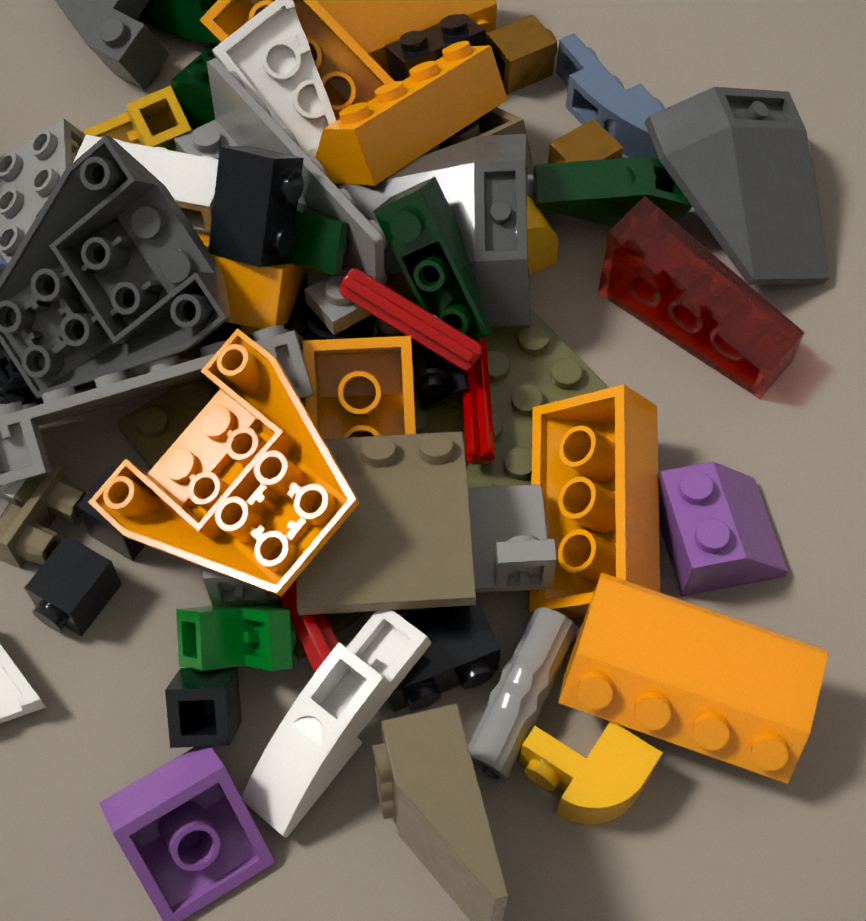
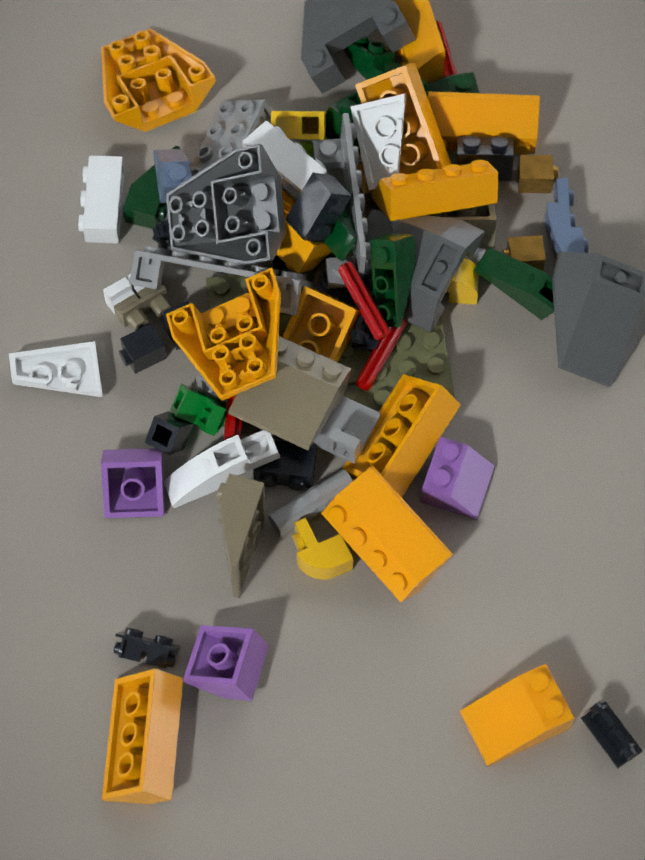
camera: 30 degrees right, 5 degrees up
(695, 299) = (525, 362): clear red wedge -> none

